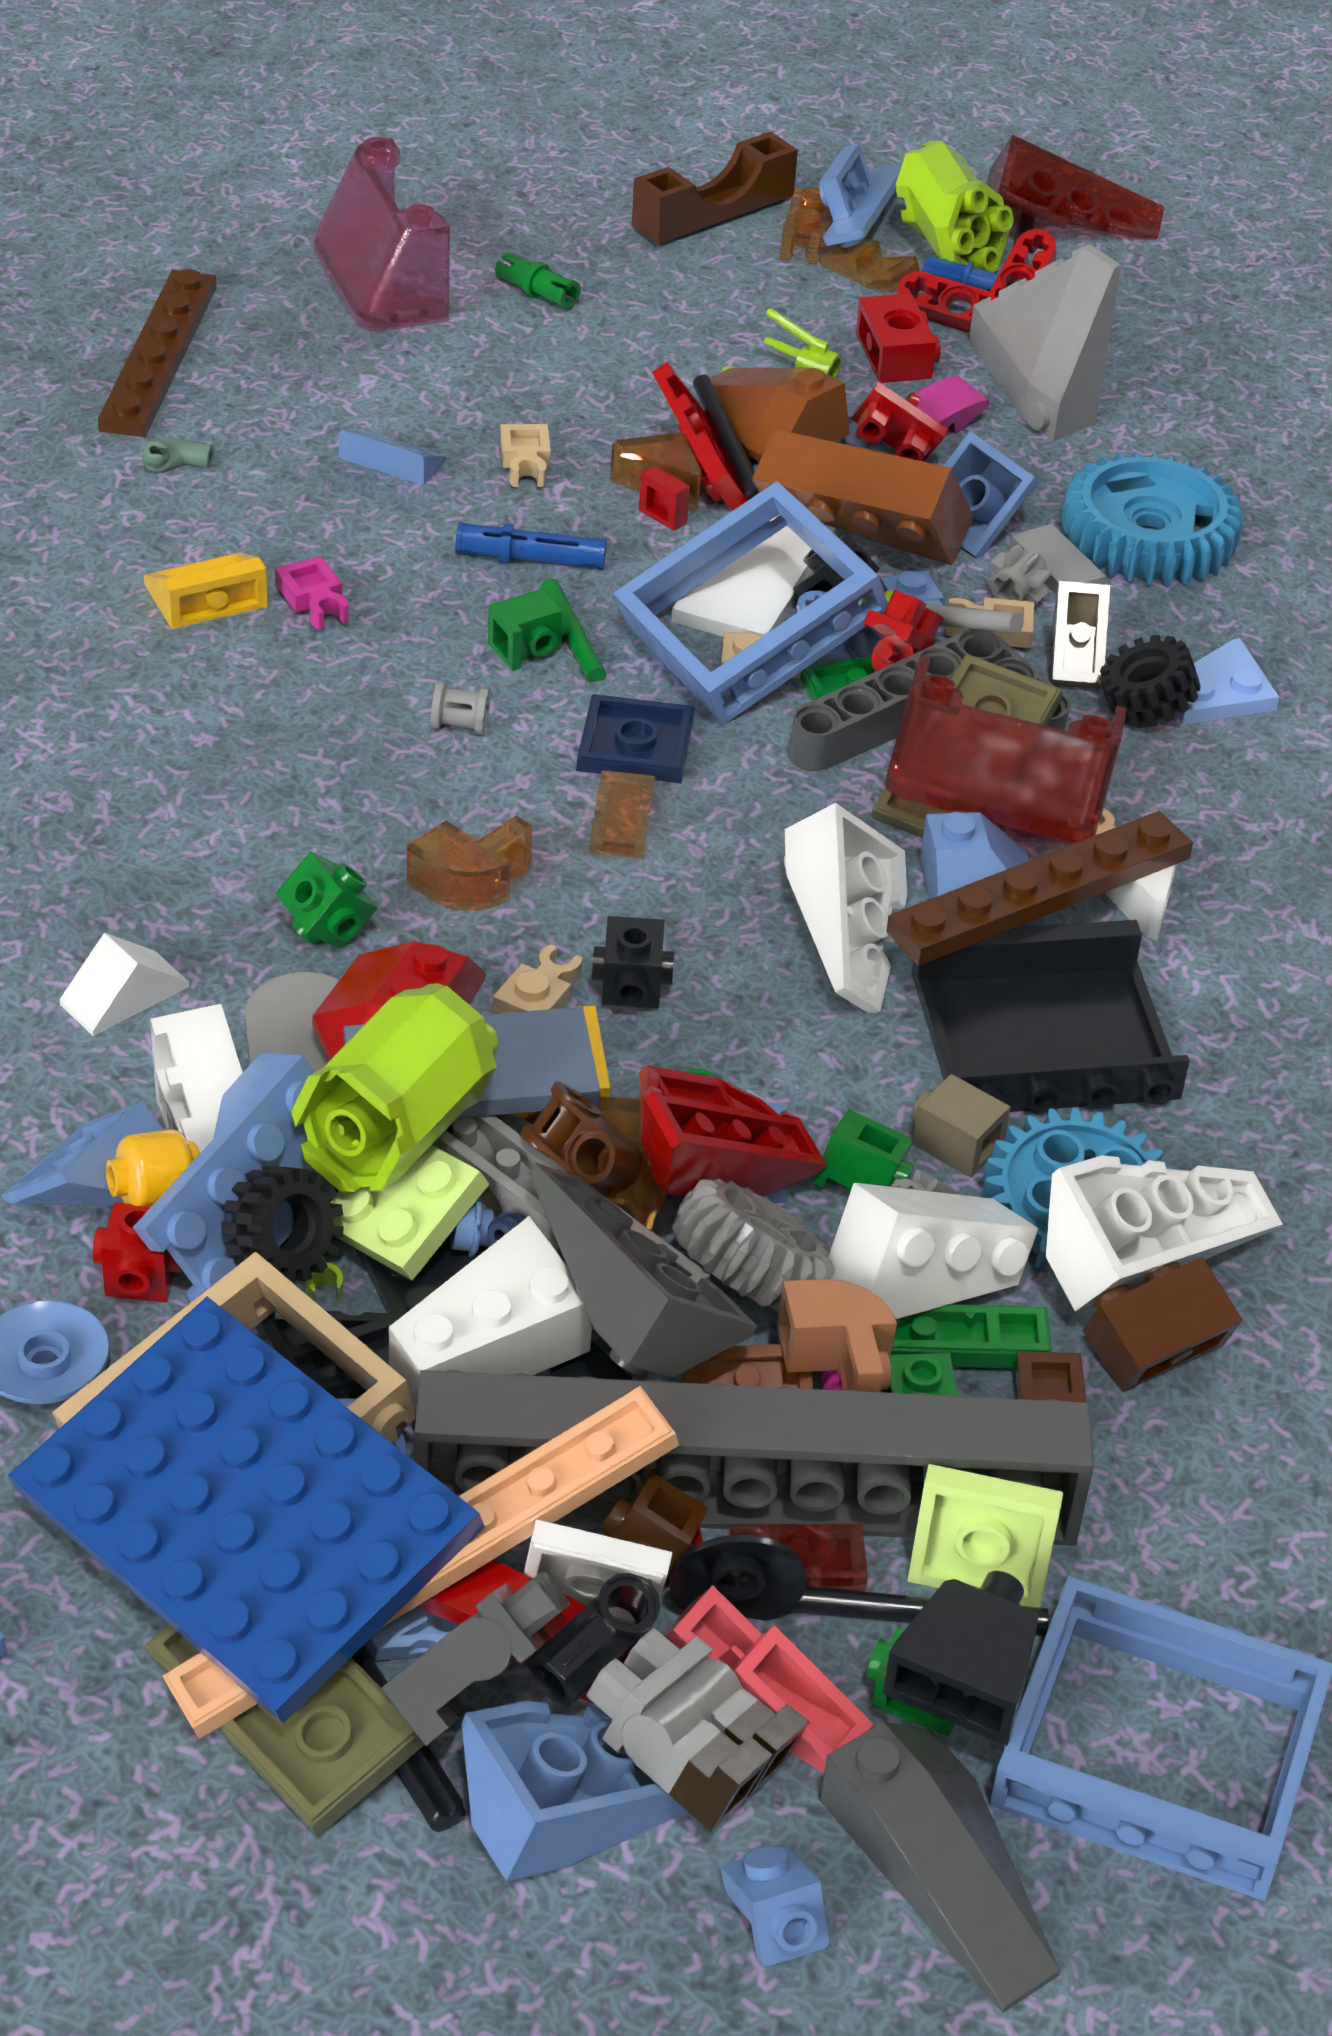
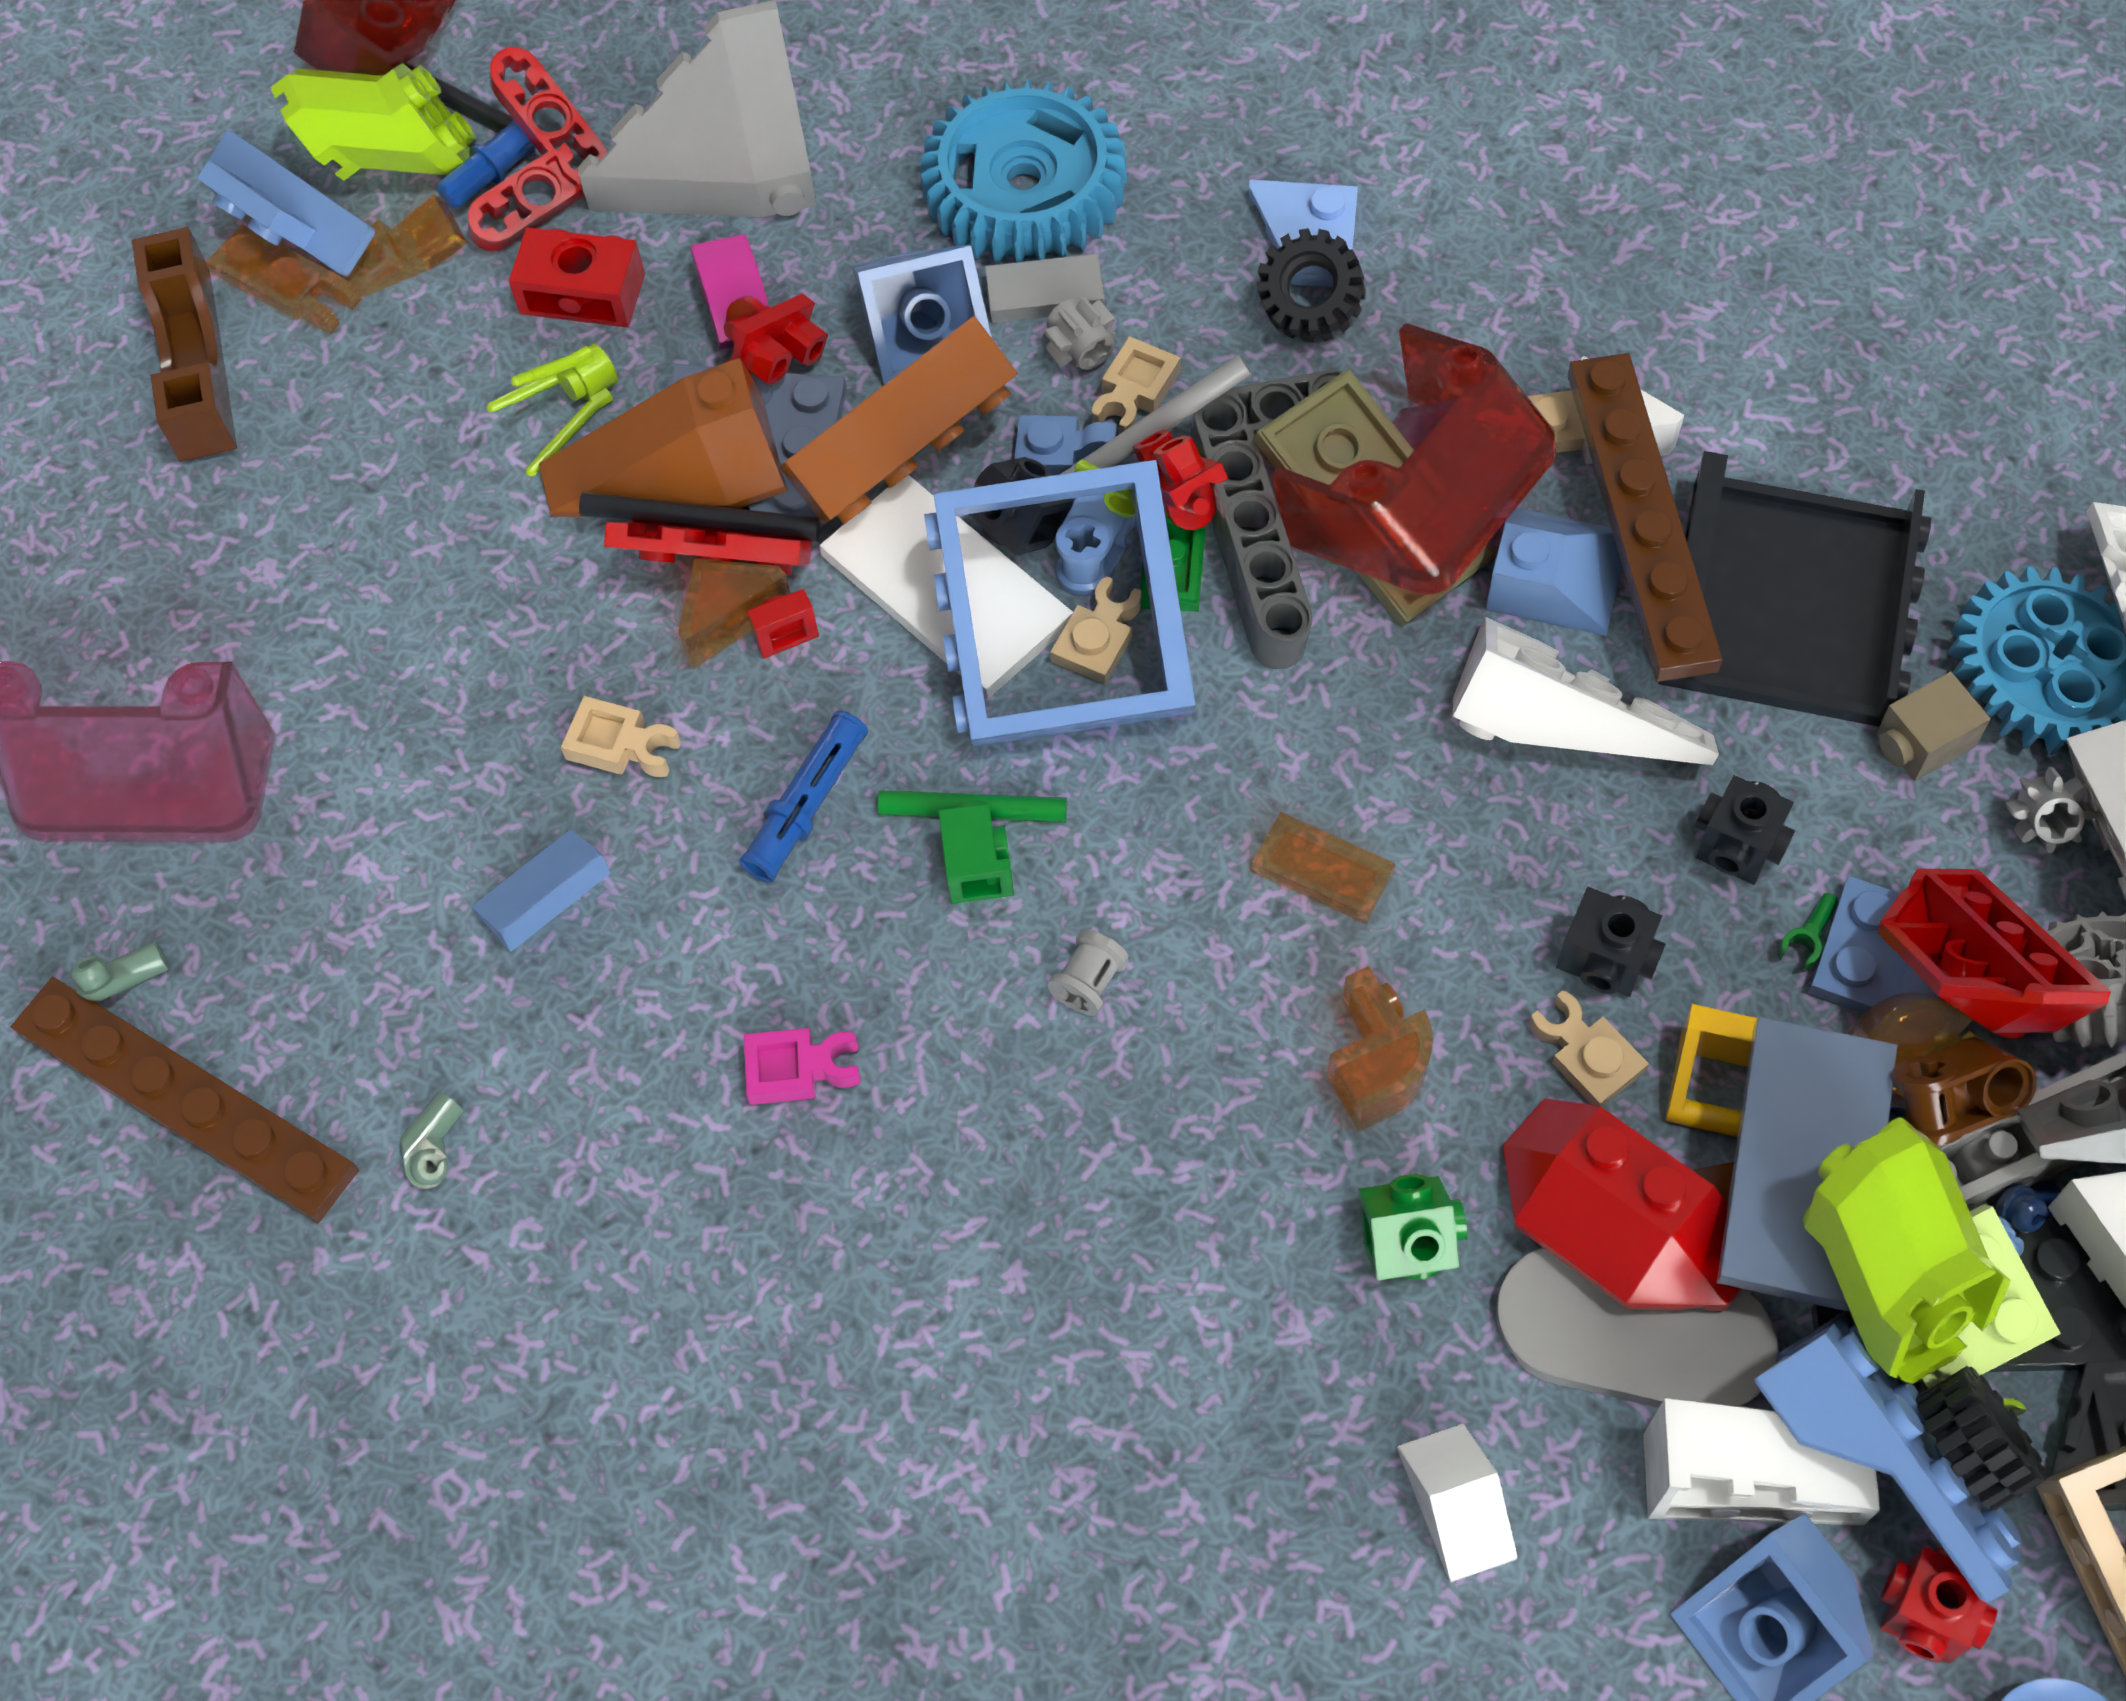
camera: 60 degrees left, 20 degrees up
(148, 1165) = (1869, 1552): yellow head -> none
(209, 589) = (762, 1229): yellow tile -> none
(231, 302) = (102, 980): none -> sand green arm
(537, 280) = (258, 605): green pin -> none
(636, 737) = (1194, 808): dark blue tile -> none
(788, 1014) = (1744, 829): none -> black brick
(864, 1154) = (1960, 828): green brick -> none
(1079, 634) = (1209, 312): slope -> none

